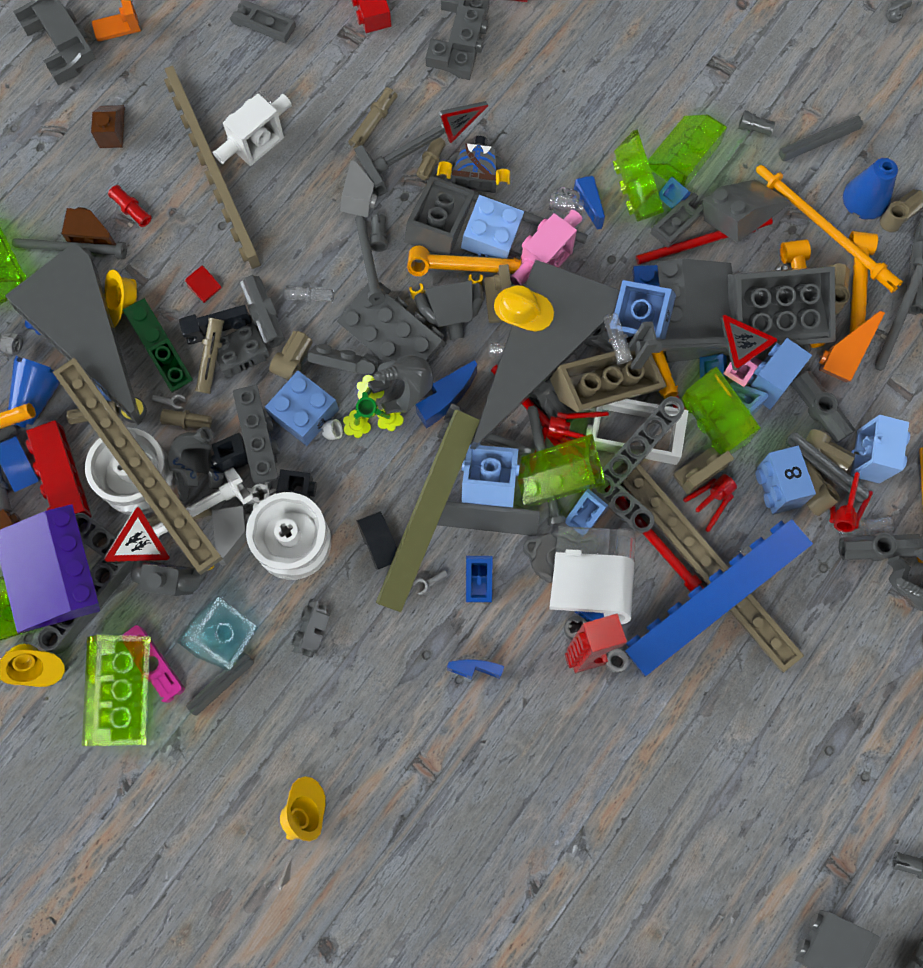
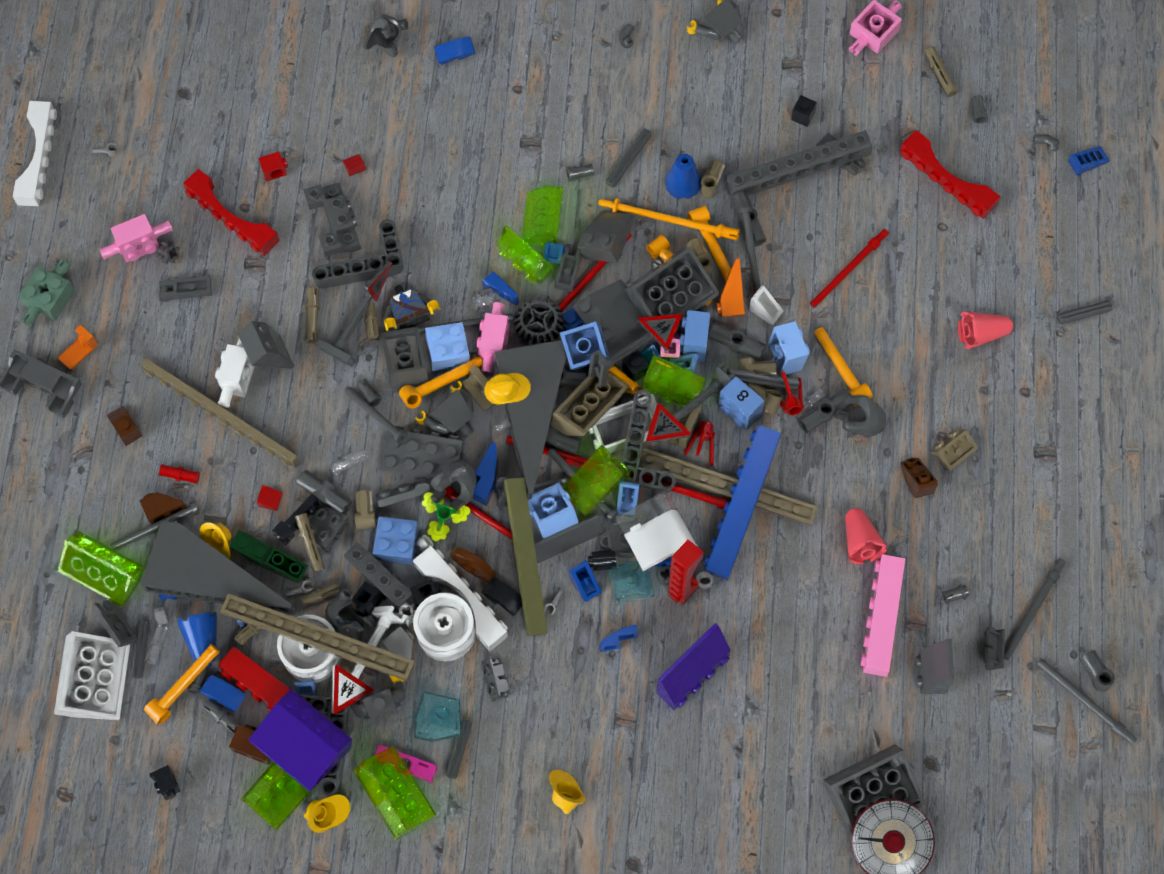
camera: 30 degrees left, 5 degrees down
(102, 513) = (306, 688): none -> medium blue slope
(297, 119) = (264, 346): none -> dark grey slope
(337, 564) = (488, 629): none -> white arch
(357, 192) = (337, 372): light grey slope -> none
(363, 485) = (472, 564): none -> reddish brown wheel
(394, 392) = (480, 514): none -> red bar
(444, 94) = (365, 263): none -> dark grey beam
(514, 566) = (602, 560): none -> black brick
(529, 611) = (630, 583): none -> clear light blue slope
(538, 761) = (693, 668): none -> dark purple slope
(559, 427) = (577, 453): red plant -> none
(617, 338) = (579, 373): clear axle -> none
(619, 251) = (547, 312): none -> dark grey gear
(682, 458) = (667, 426): none -> dark grey piece
(687, 368) = (635, 366): none -> black brick
(806, 837) = (884, 615): none -> bright pink brick
(837, 726) = (862, 538): none -> coral cone
(880, 385) = (765, 306): none -> white slope

